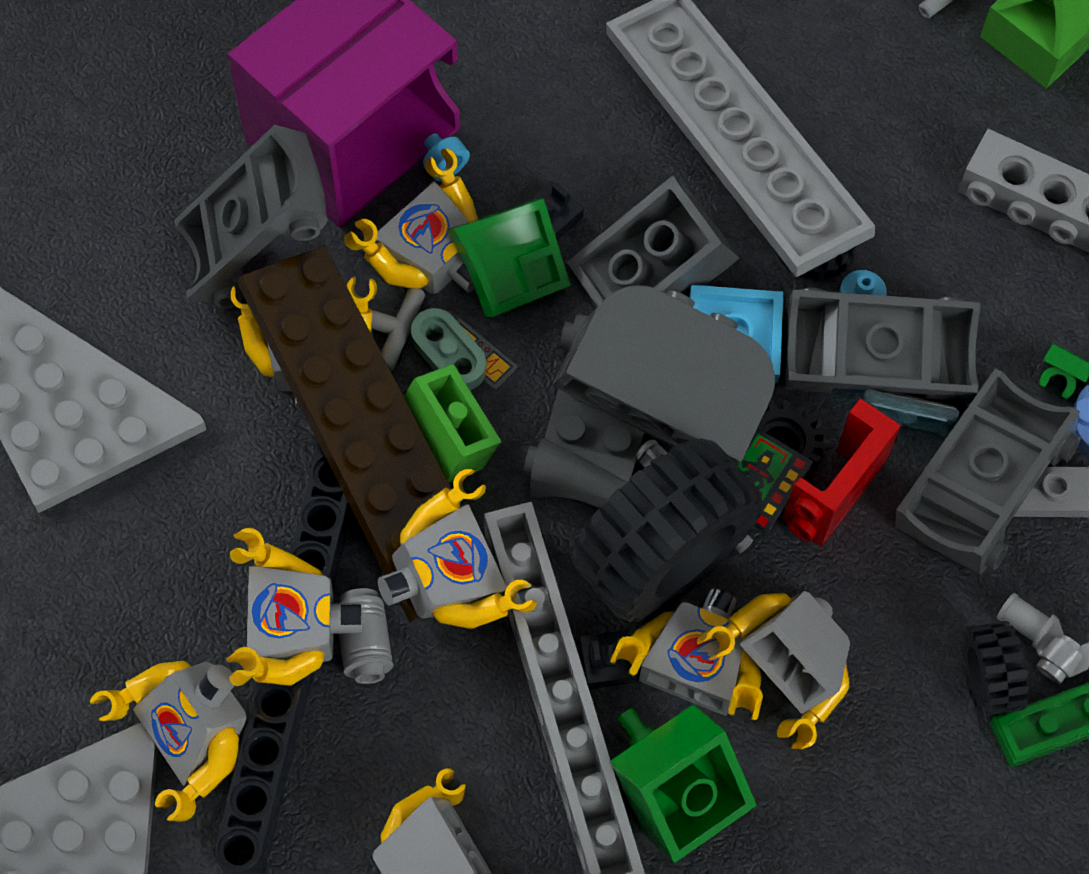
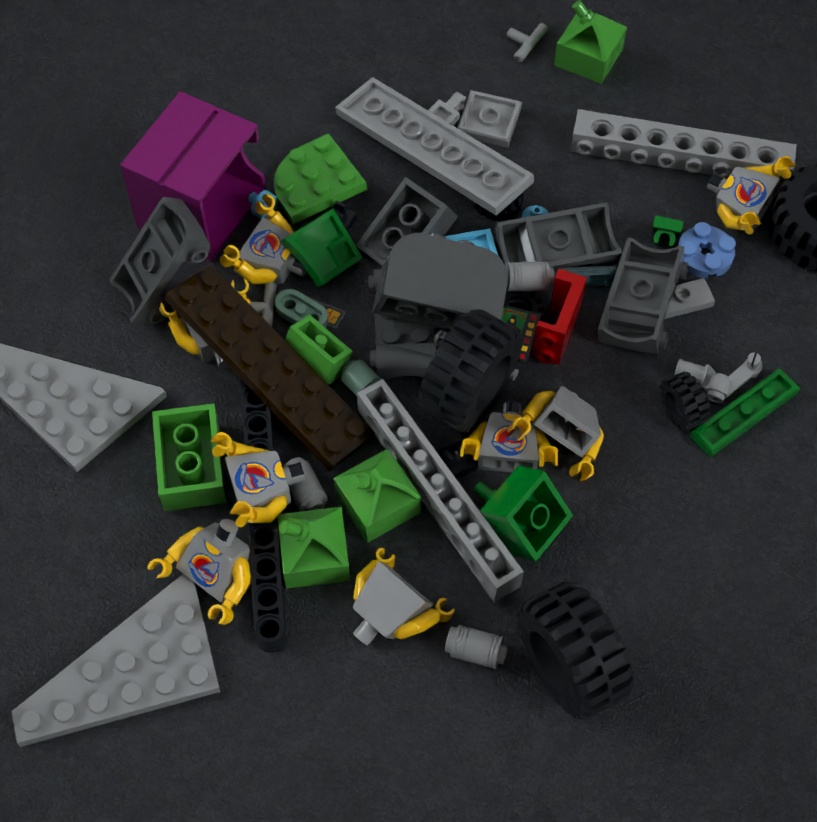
camera: 15 degrees left, 5 degrees down
(191, 541) = (184, 457): none -> bright green brick
(345, 738) = (313, 547): none -> bright green piece
(449, 565) = (346, 427): torso -> none
(468, 684) = (377, 495): none -> bright green piece
(504, 483) = (358, 376): none -> sand green brick
(538, 135) = (315, 178): none -> bright green plate
(782, 77) = (451, 109): none -> light grey plate
(812, 392) = (529, 276): none -> light grey head
(845, 103) = (490, 118): none -> light grey tile

